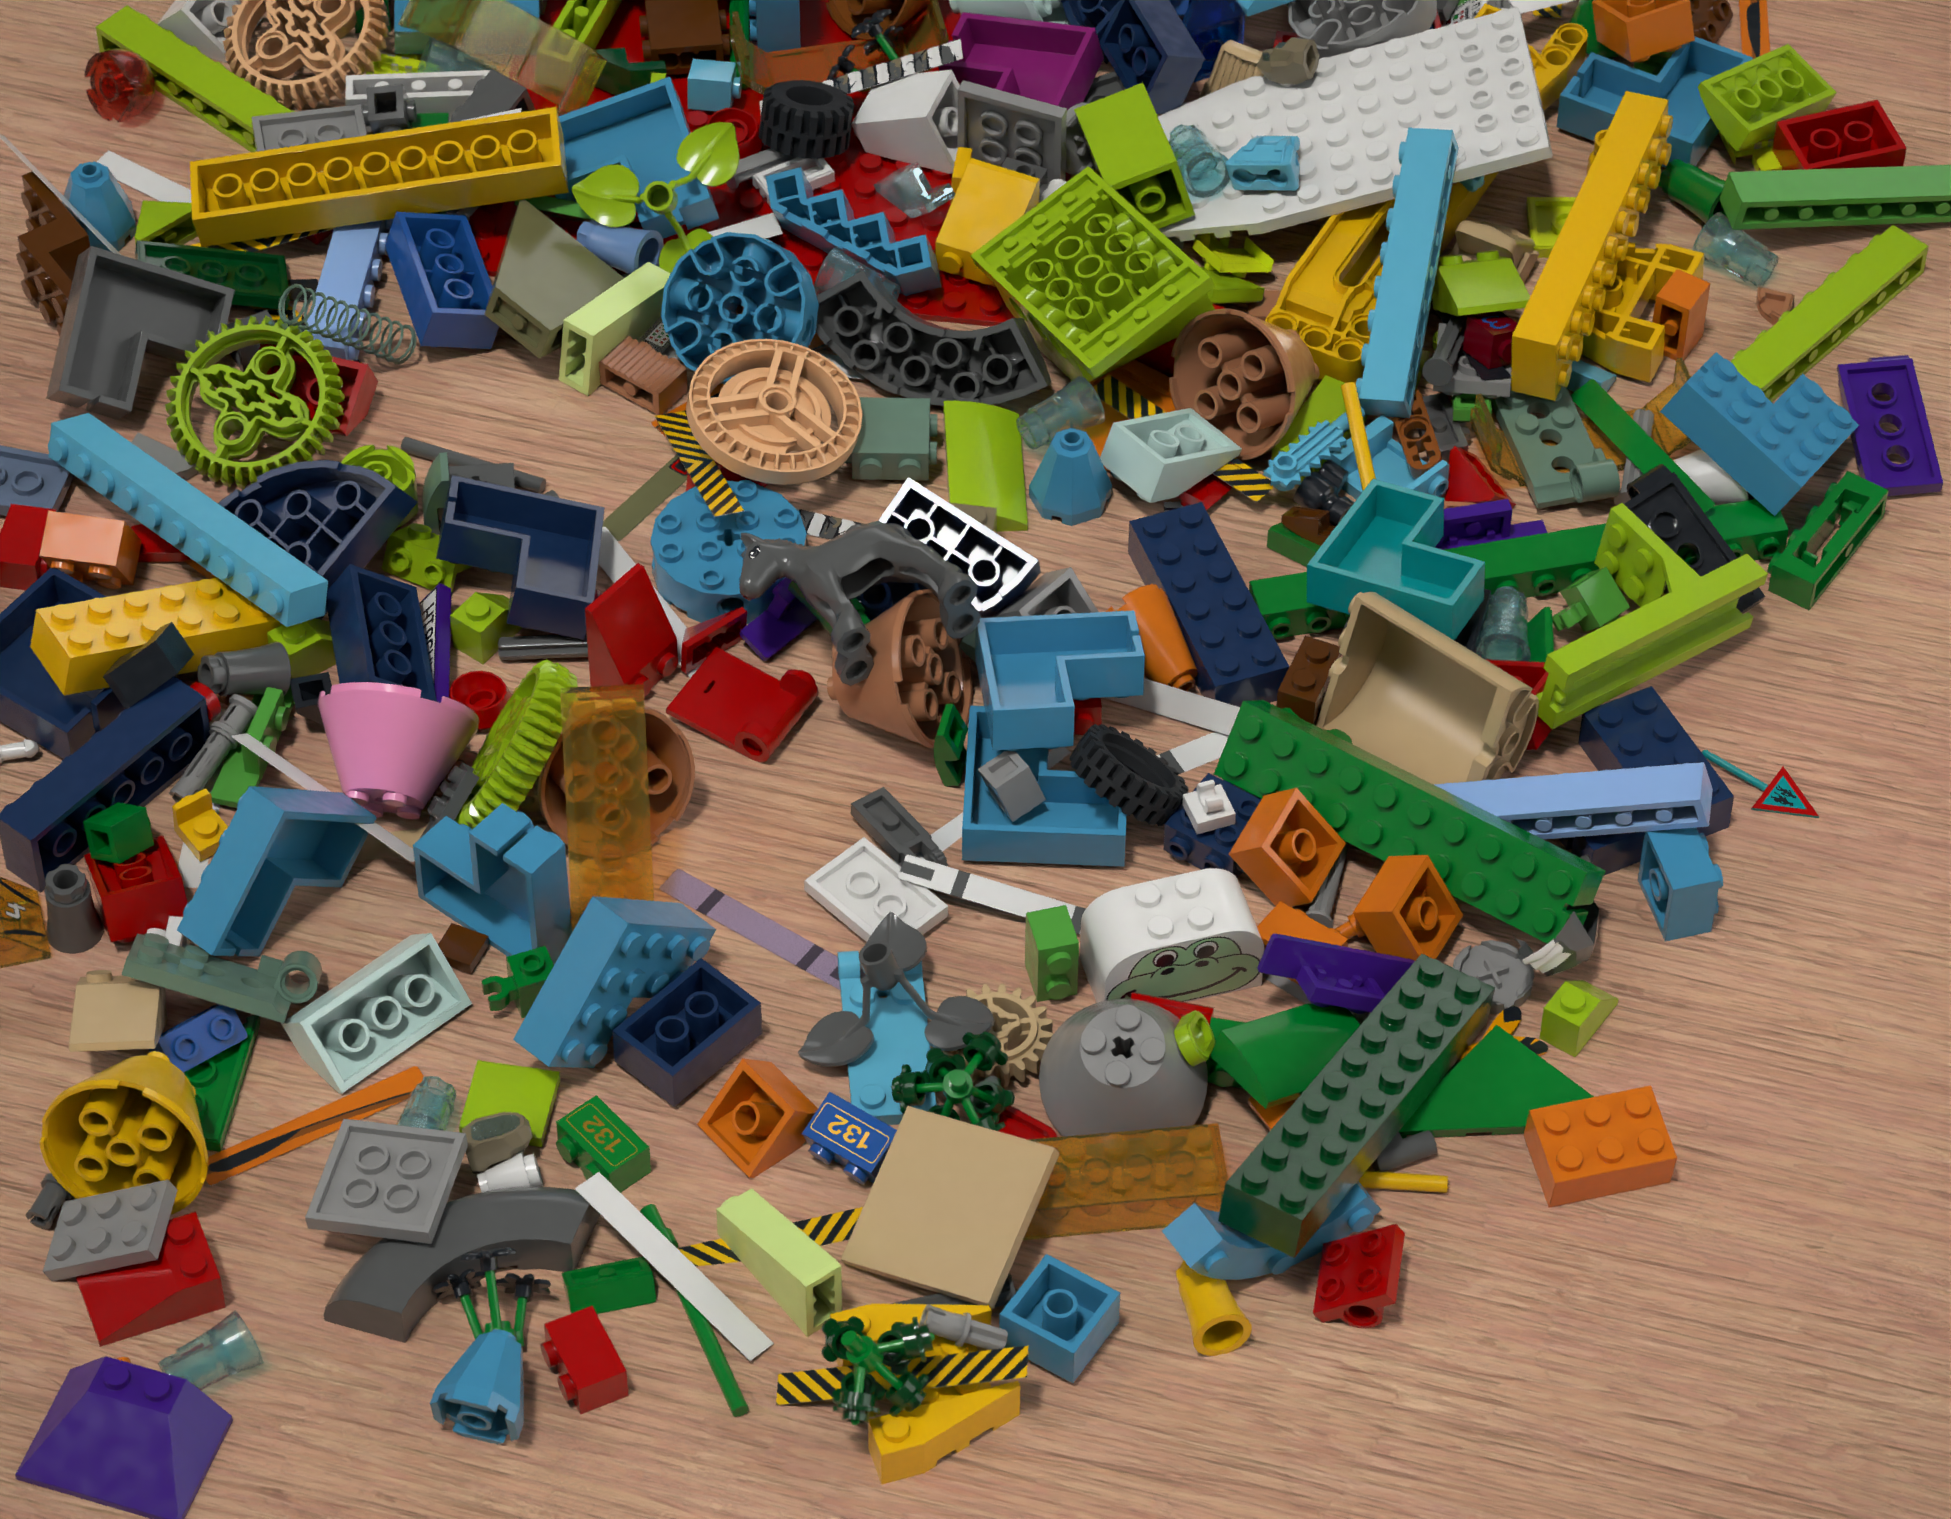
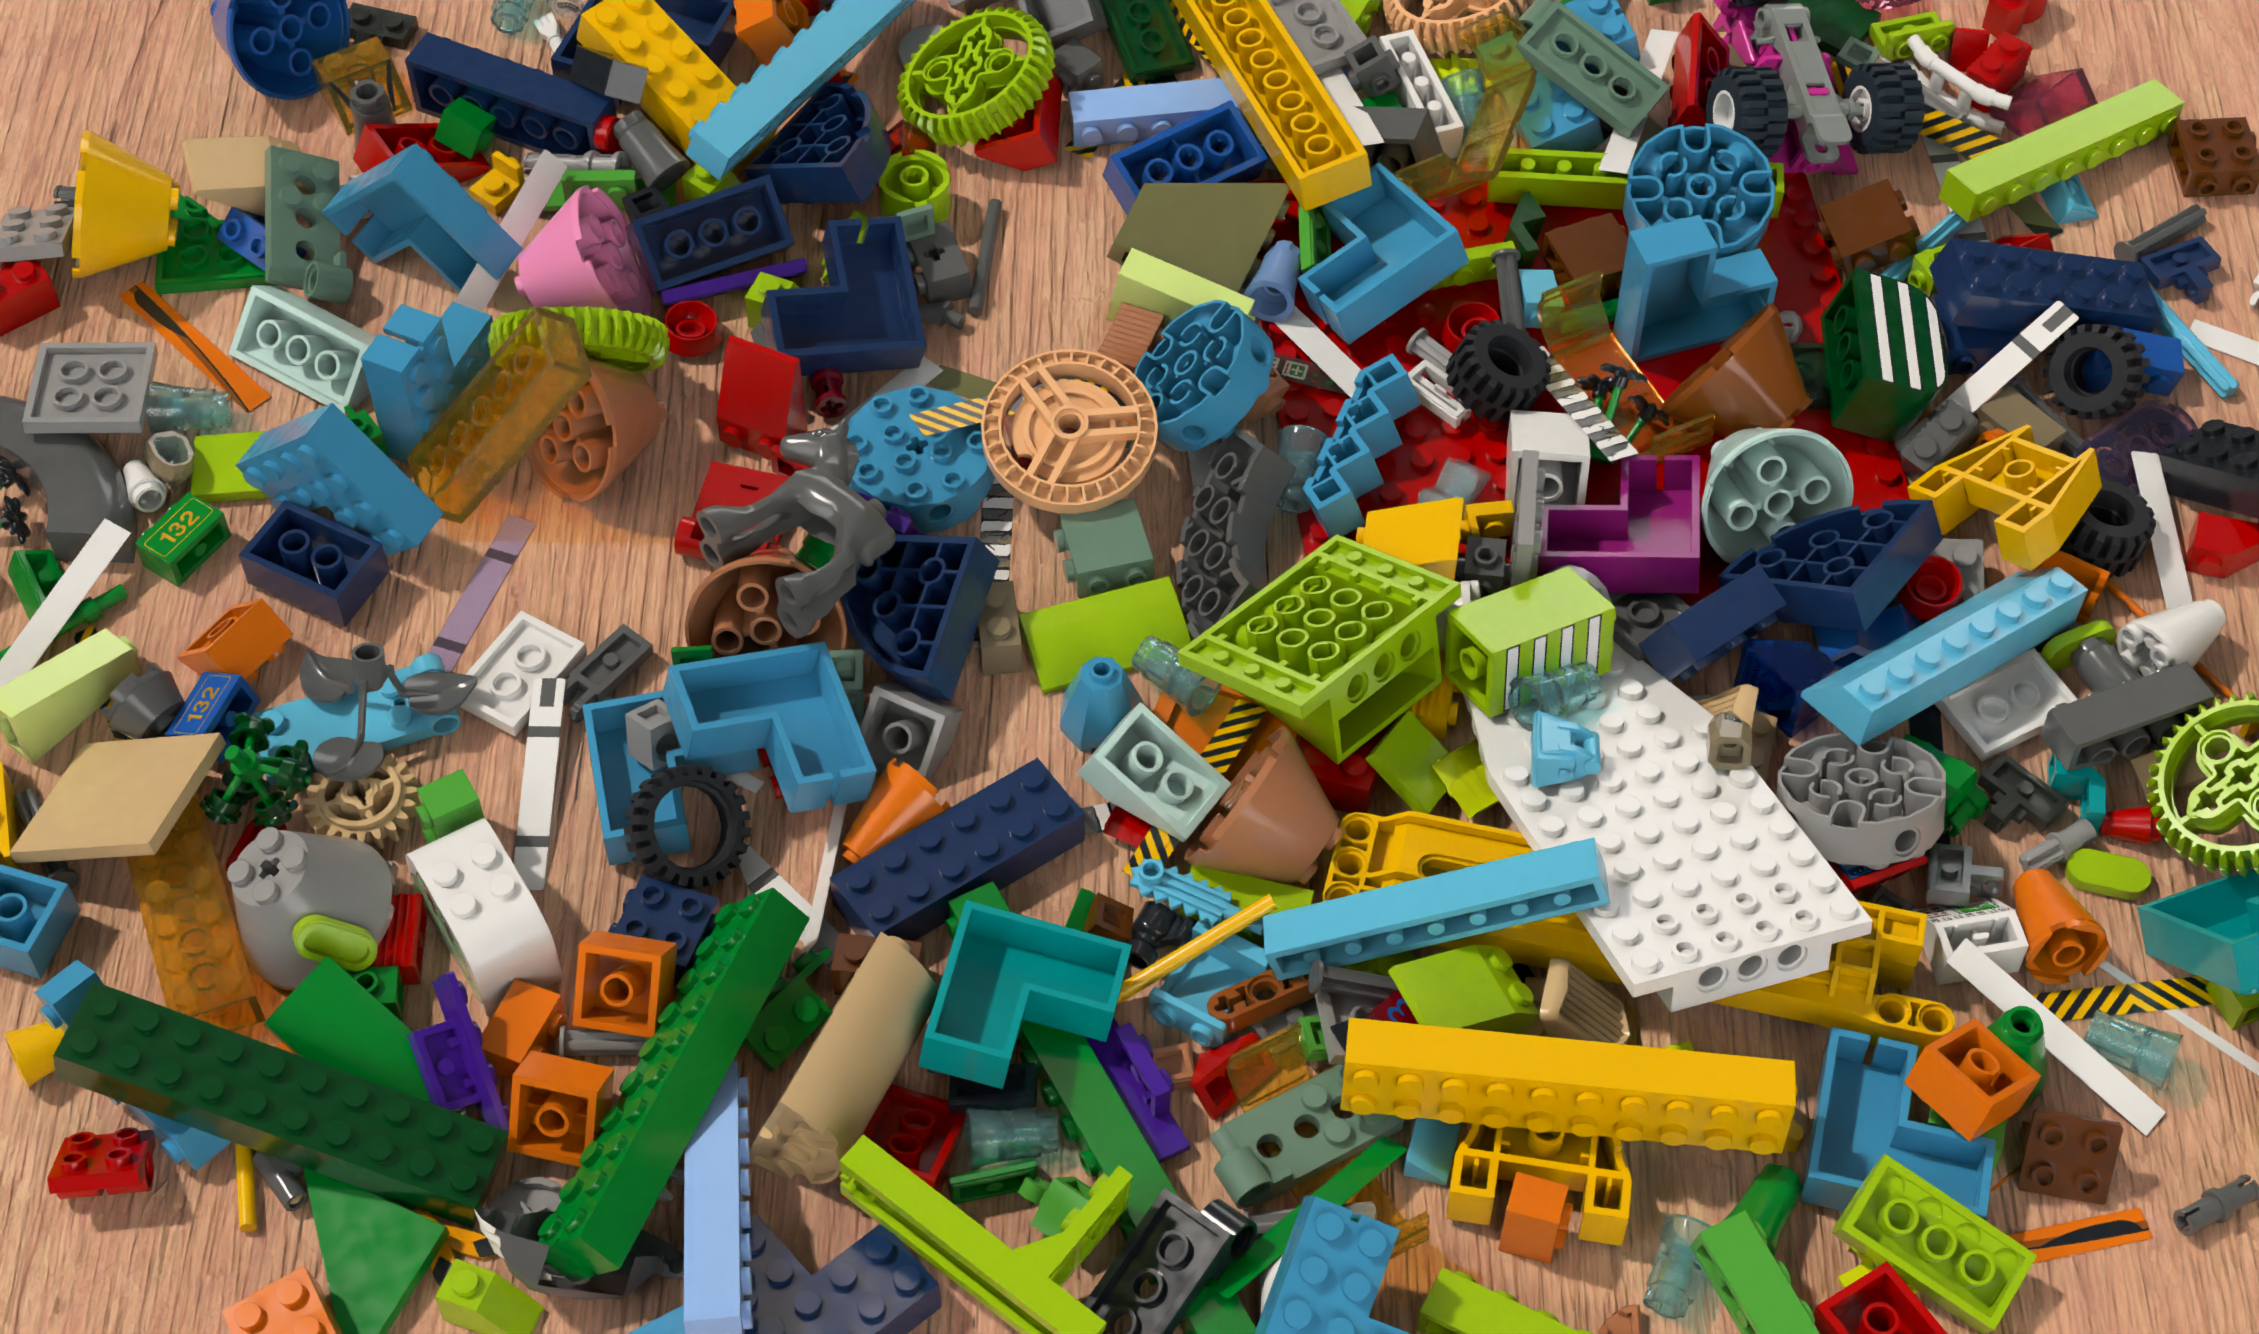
camera: 75 degrees right, 5 degrees up
(294, 322) = (1043, 47): sand green piece -> none
(612, 190) = (1308, 238): lime plant -> none
(715, 93) = (1509, 286): none -> dark grey axle
(824, 1187) = (144, 704): none -> dark grey cone
(1208, 807) = (654, 902): white tile -> none

